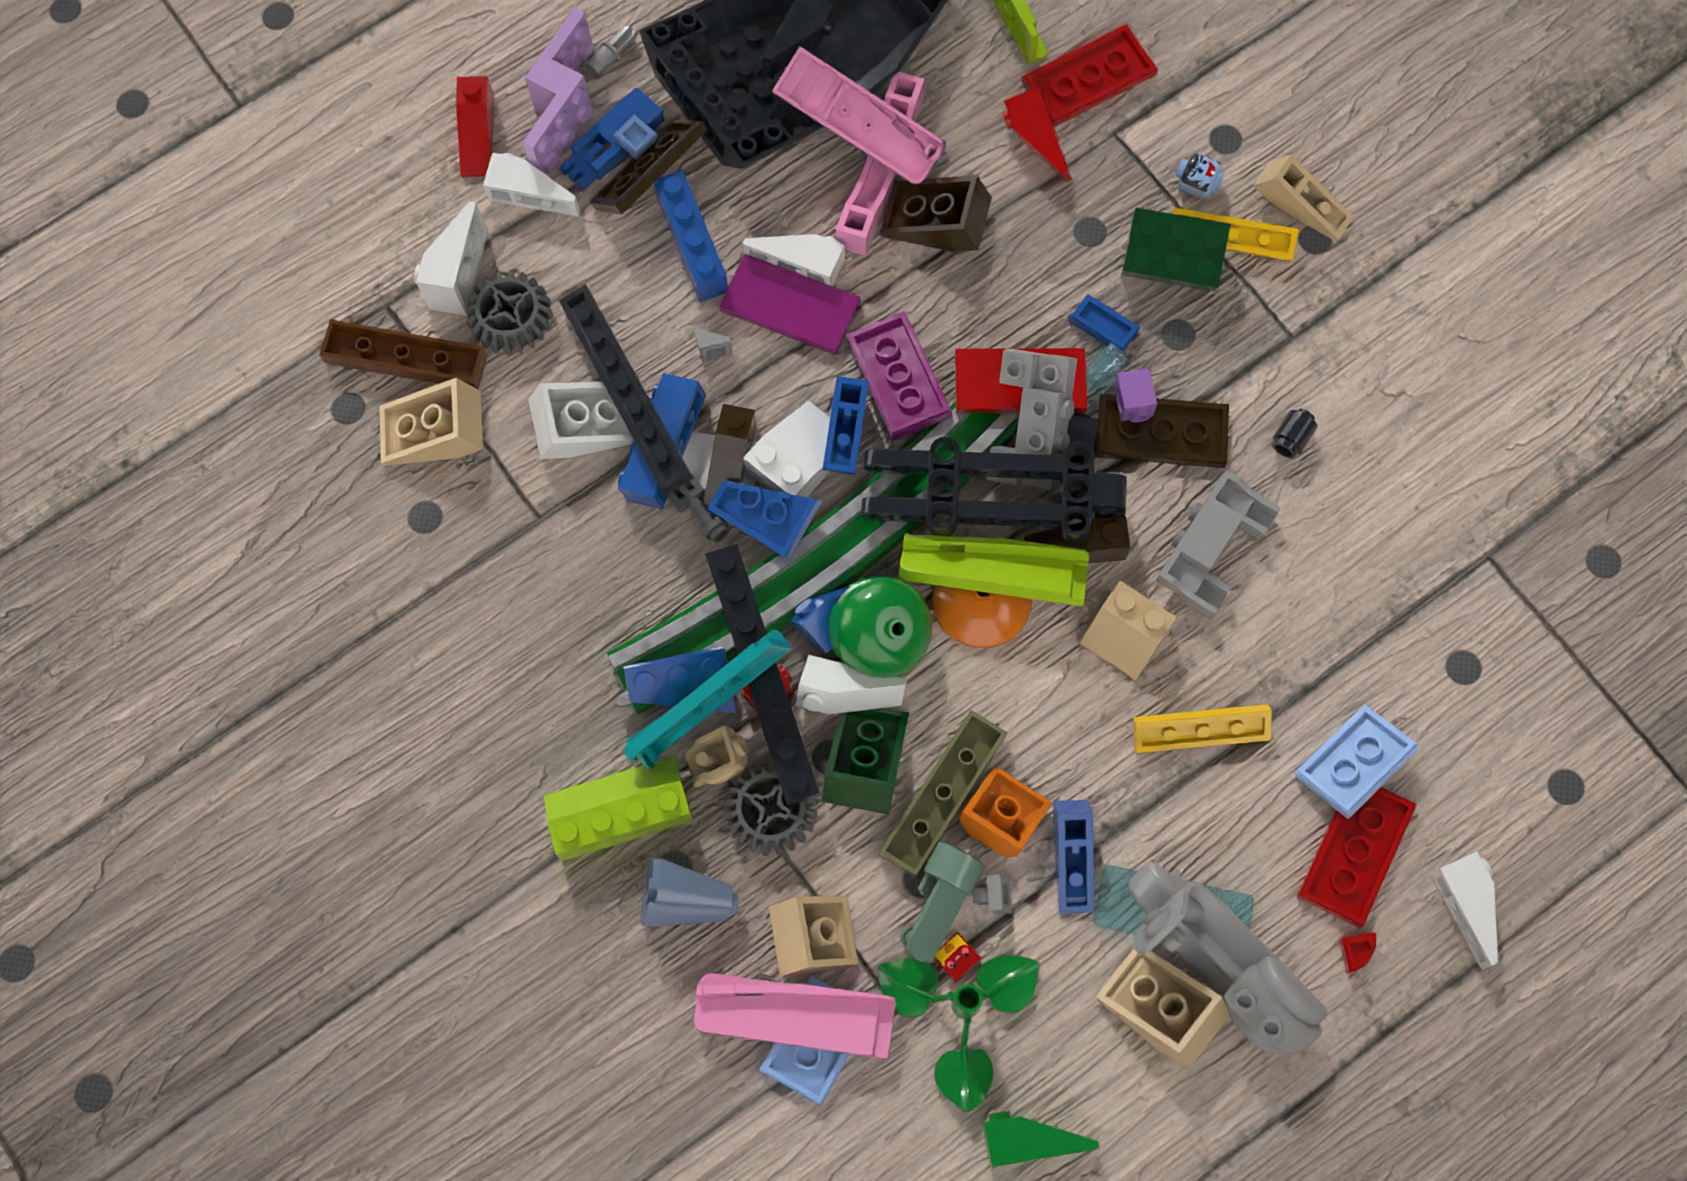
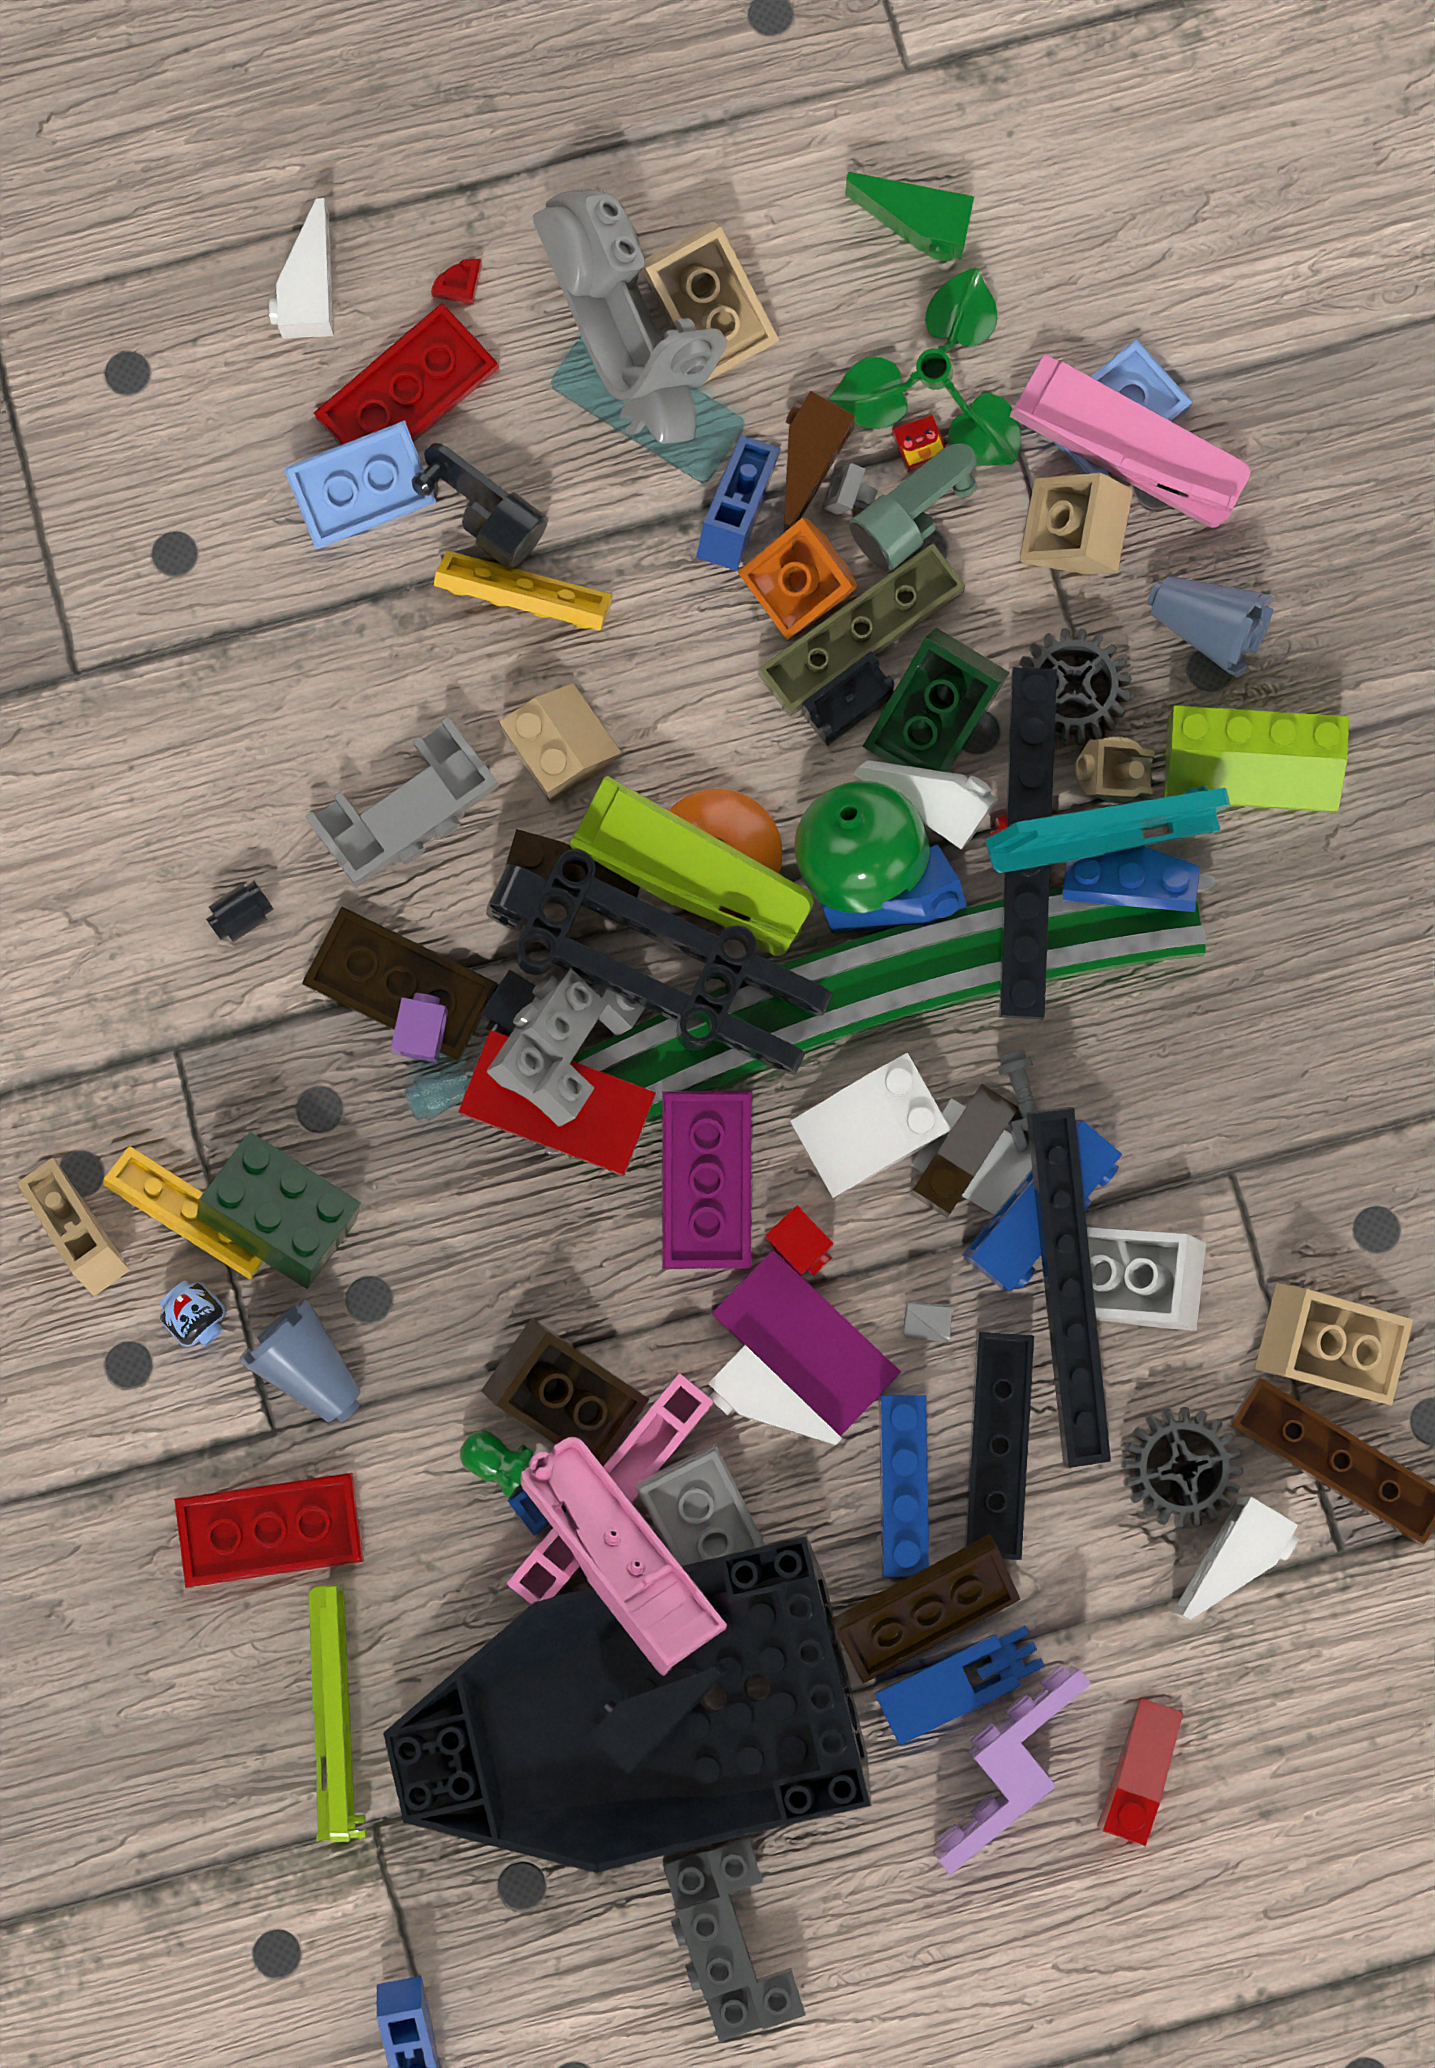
camera: 160 degrees left, 10 degrees up
(521, 184) = (1106, 1659): white slope -> none
(610, 51) = (912, 1826): light grey axle -> none
(635, 136) = (928, 1662): medium blue tile -> none
(637, 285) = (1000, 1441): none -> black piece
(765, 514) = (950, 1047): blue wing -> none
(814, 172) = (699, 1509): none -> light grey tile
(819, 360) = (800, 1242): none -> red brick
(845, 425) = (804, 1126): blue slope -> none
(932, 739) = (848, 699): none -> black hinge
(966, 159) = (493, 1461): none -> green animal
(1032, 122) = (381, 1467): red slope -> none
(1036, 916) = (814, 442): none -> reddish brown slope
(1104, 323) = (409, 1156): blue tile -> none
(1115, 168) = (304, 1364): none -> sand blue cone
(1232, 765) = (499, 521): none -> black piece

